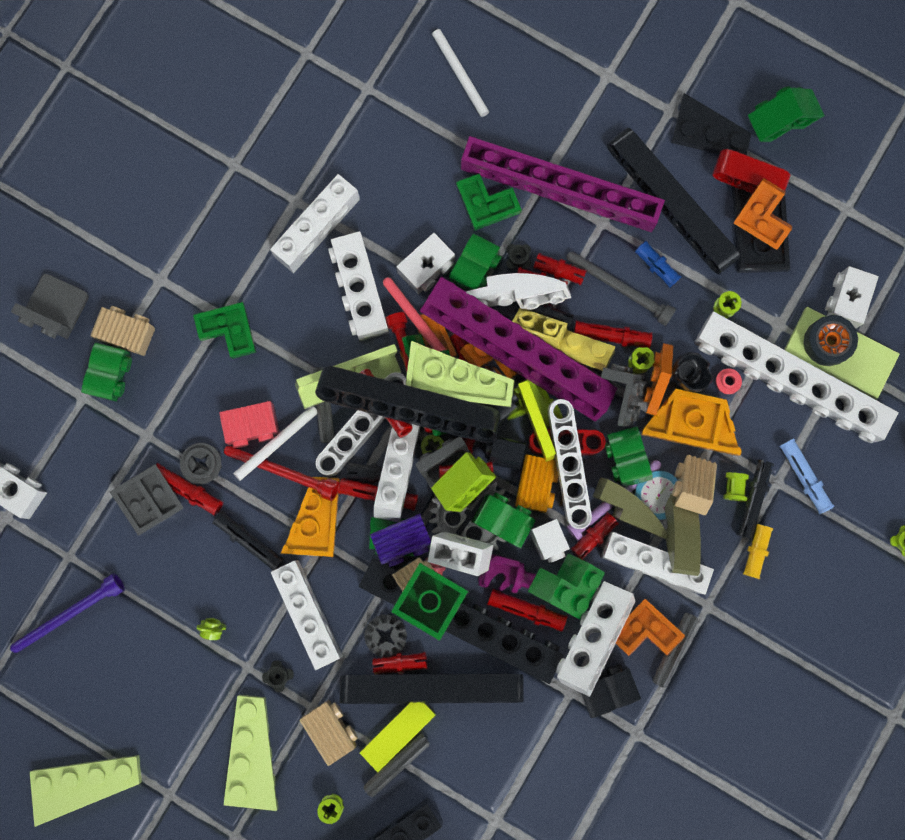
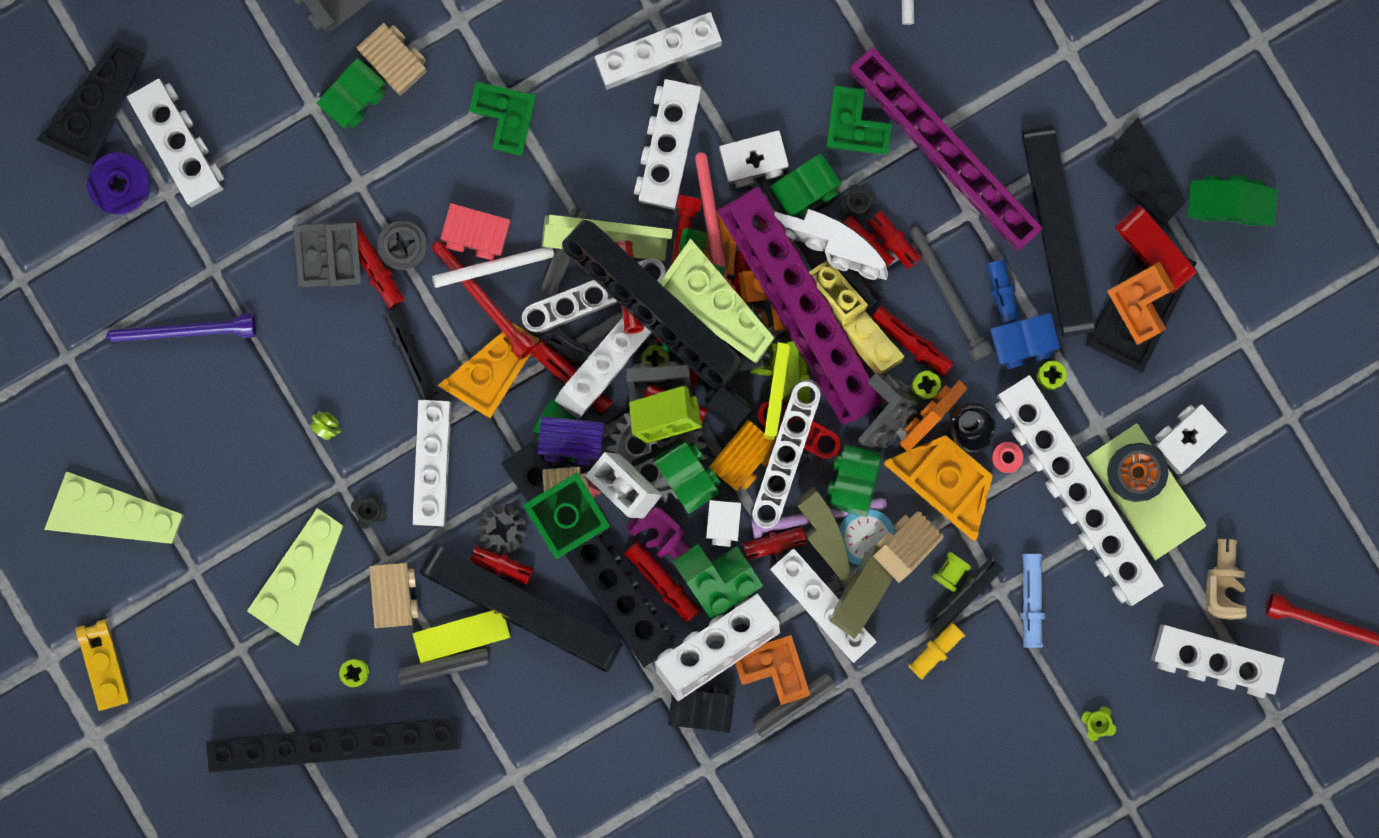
camera: 20 degrees right, 5 degrees up
(693, 290) = (1025, 339): none -> blue brick

